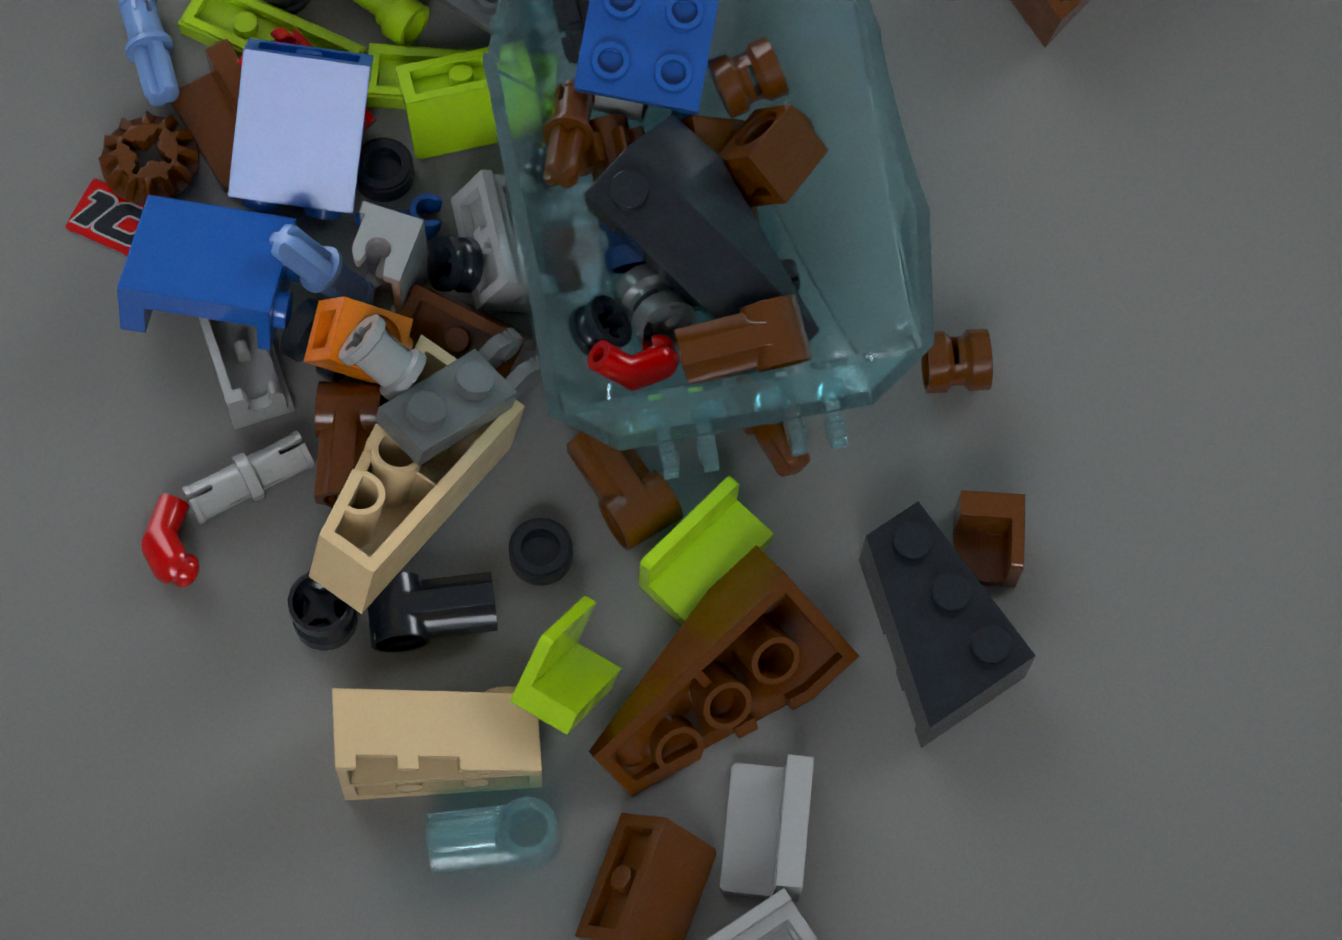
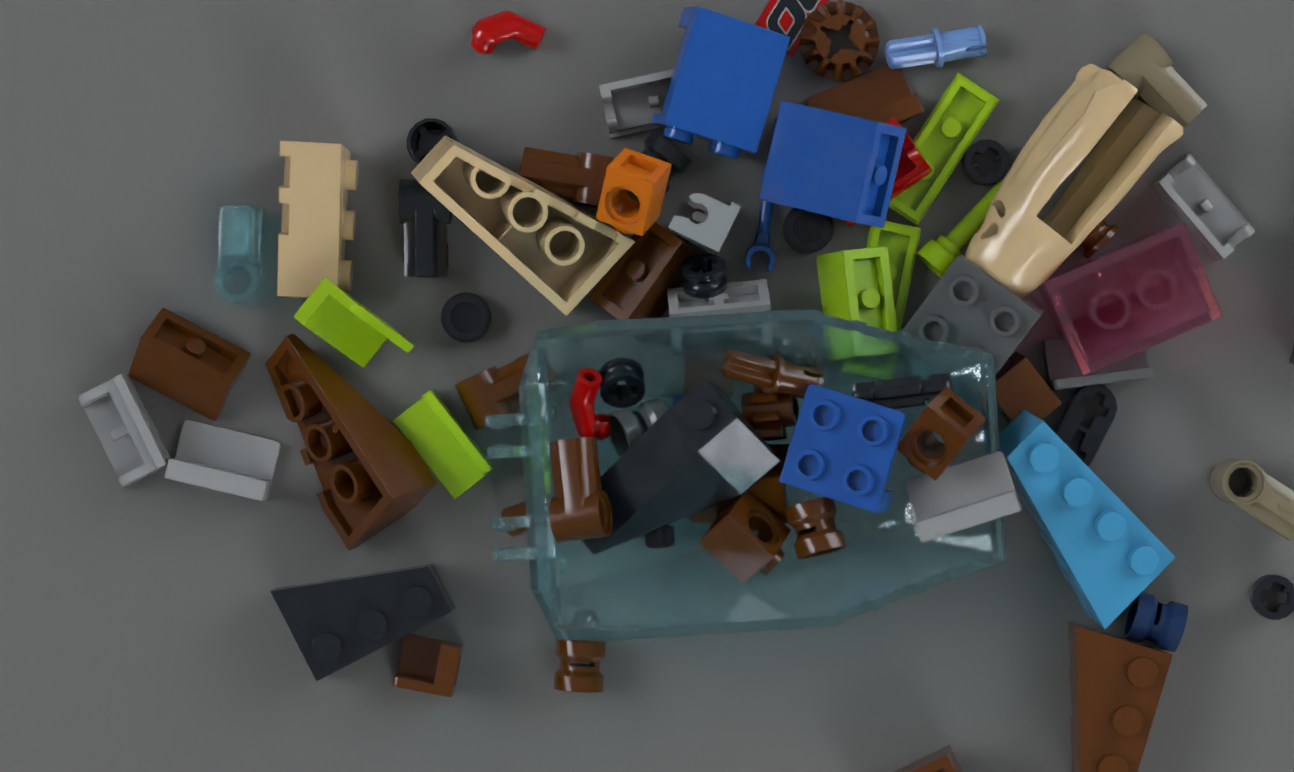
camera: 105 degrees right, 20 degrees up
(248, 477) = (552, 97): light grey pin -> none
(319, 266) = (709, 167): medium blue axle -> none
(382, 357) = (601, 207): light grey bush -> none
(458, 398) = (565, 260): dark grey hinge -> none

